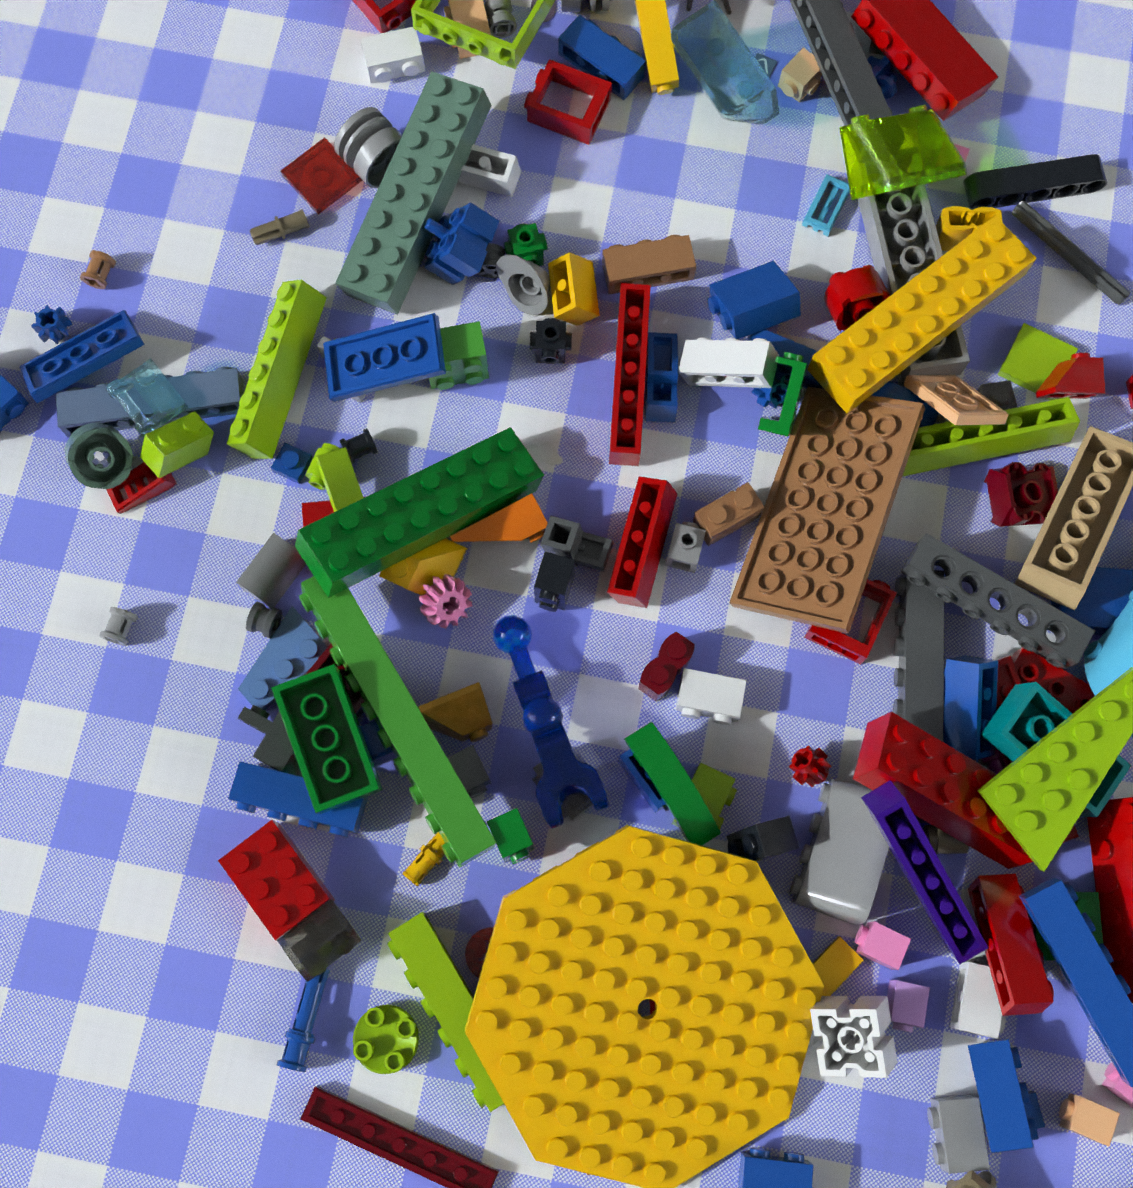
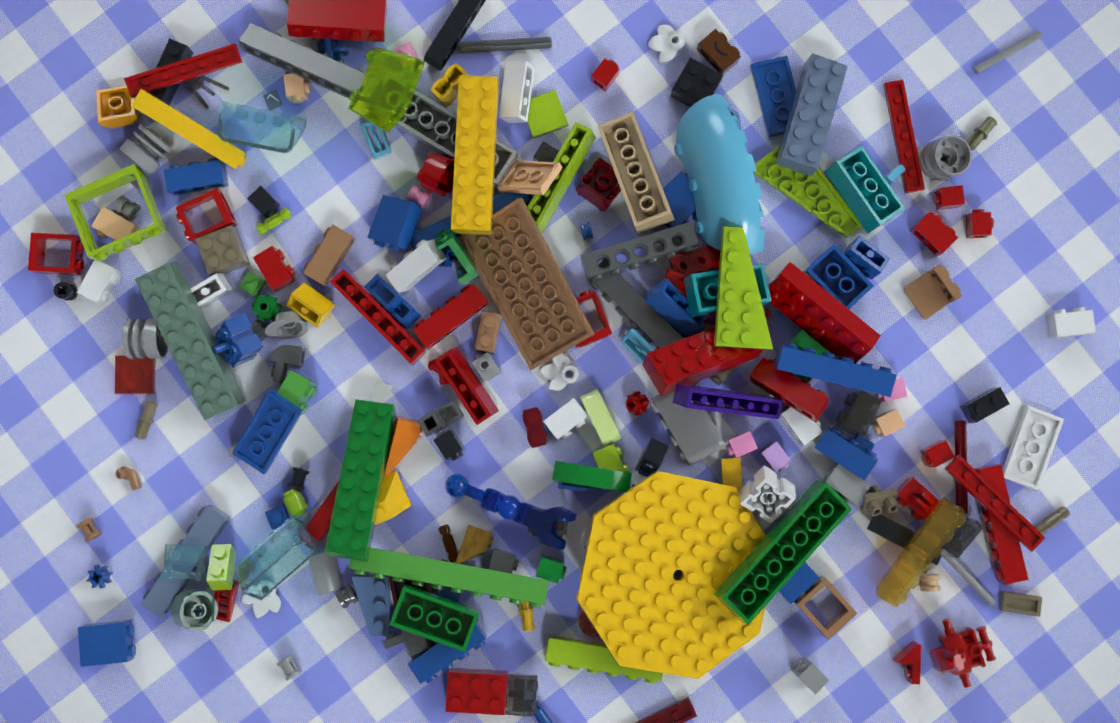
camera: 45 degrees left, 10 degrees up
(80, 356) = (130, 576): blue tile -> none
(175, 527) = (261, 607): none -> white plate
(199, 261) = (130, 475): none -> medium nougat arm
(239, 497) = (276, 558): none -> clear light blue windscreen
(276, 370) = (224, 485): lime brick -> none
(339, 478) = (310, 503): lime tile -> none
(346, 29) = (70, 289): none -> black bush
(385, 1039) = (590, 700): lime dish -> none
(436, 682) = (448, 542): none -> reddish brown axle
(445, 601) = (413, 503): bright pink gear -> none
(492, 312) = (285, 356): none -> dark grey brick
(538, 211) = (252, 284): none -> bright green tile
(547, 148) = (222, 251): none -> dark tan brick
(550, 341) = (332, 344): black brick -> none
(578, 218) = (274, 268): none -> red brick
(628, 486) = (432, 366): none -> red arm
(630, 176) = (273, 221): none -> lime axle
(642, 146) = (264, 202): none -> black brick
(706, 455) = (451, 316): none -> red brick
(750, 737) = (600, 417): none -> yellowish green beam
(758, 636) = (557, 370): none -> white plate
(800, 1124) = (782, 551): none -> green brick
(811, 308) = (418, 196): none -> bright pink wheel
(885, 698) = (636, 344): none -> medium azure tile
(954, 524) = (586, 230): none -> blue bush
(1033, 306) = (516, 92): none -> white brick
(1065, 1064) = (858, 413): none -> clear smoke brick
(1075, 378) = (568, 108): red slope -> none

